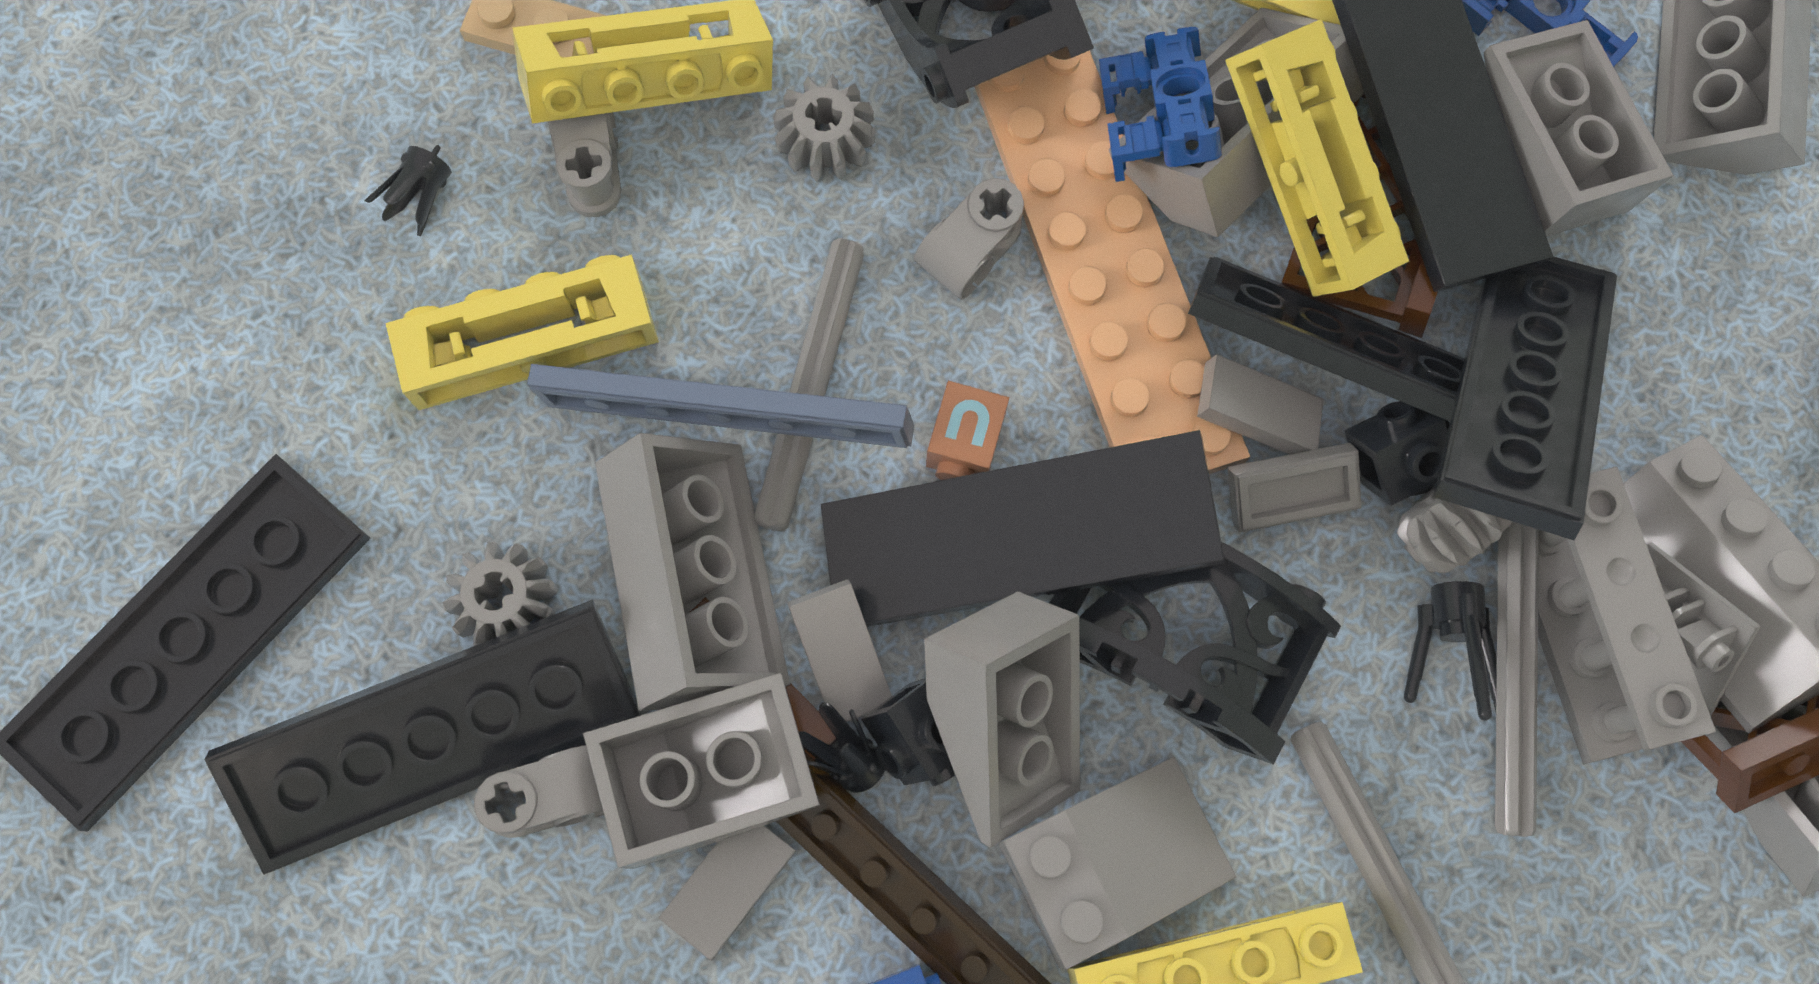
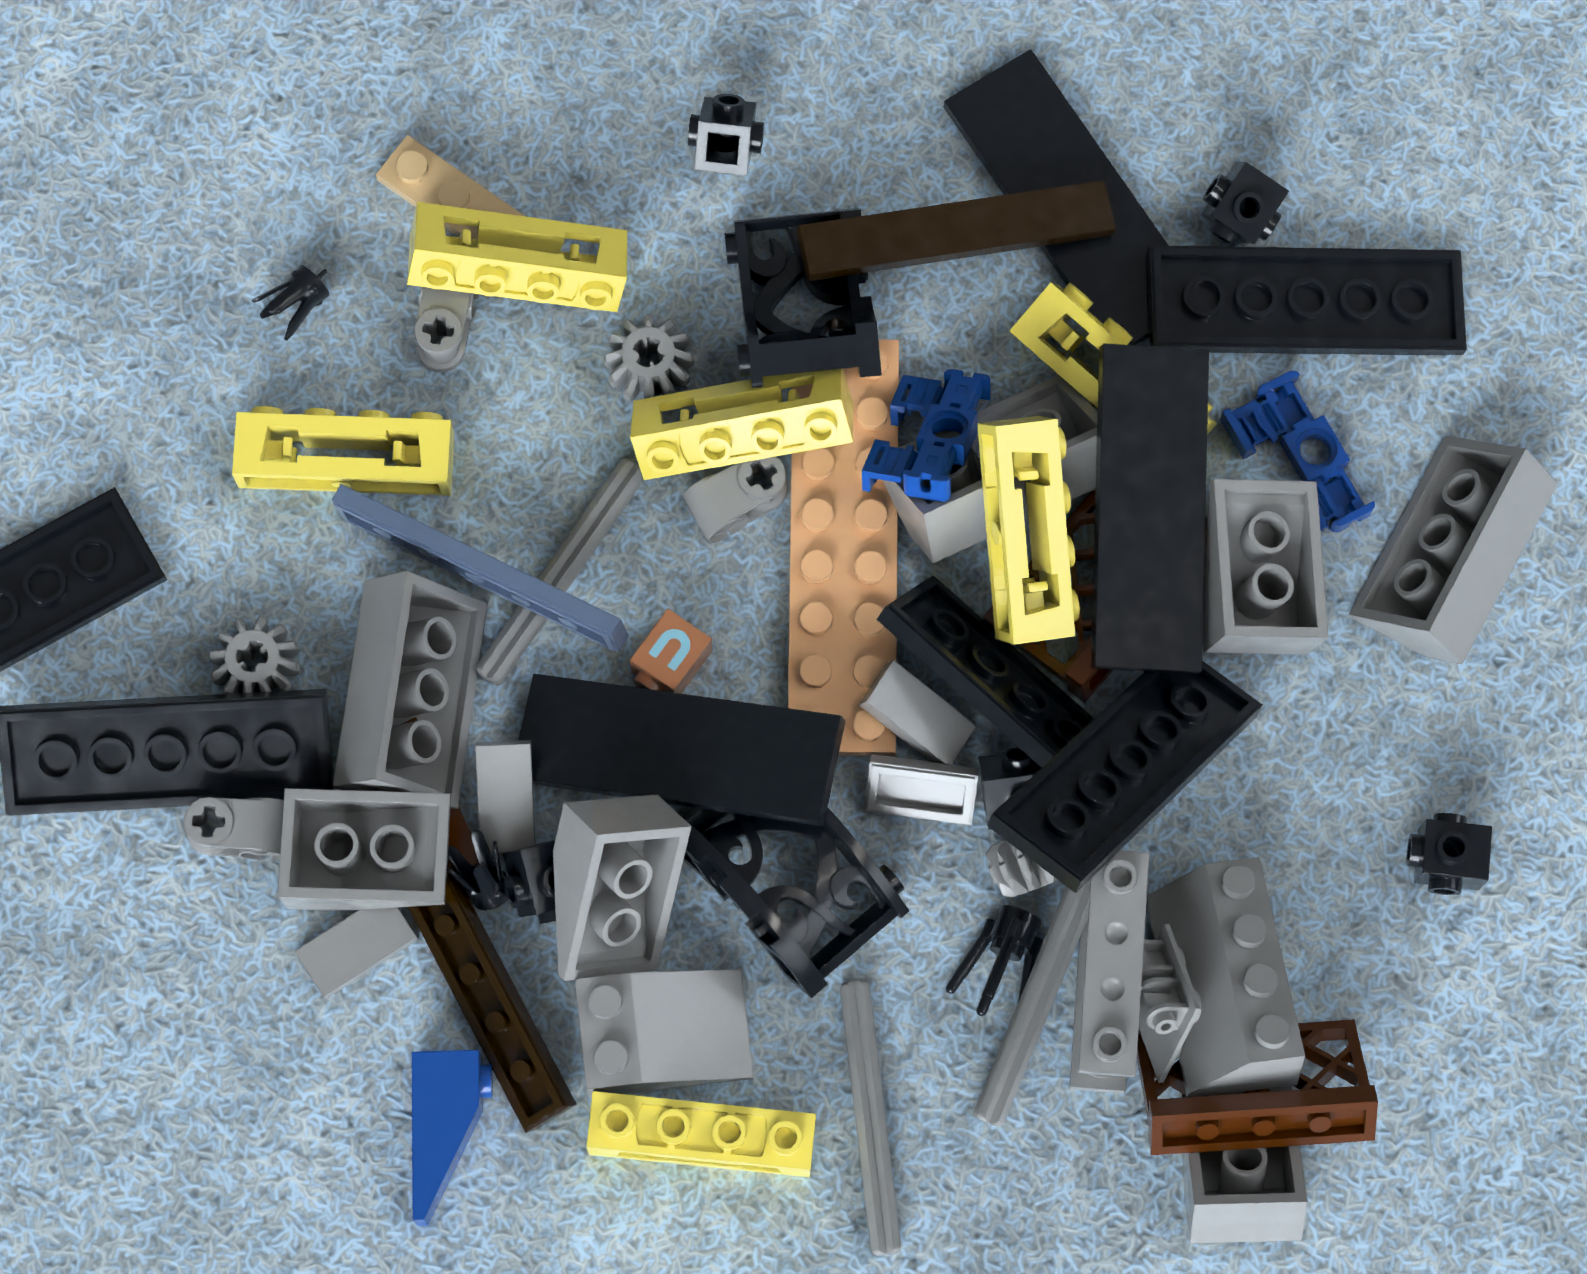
camera: 20 degrees right, 0 degrees up
(956, 153) = (741, 423): none -> light yellow brick

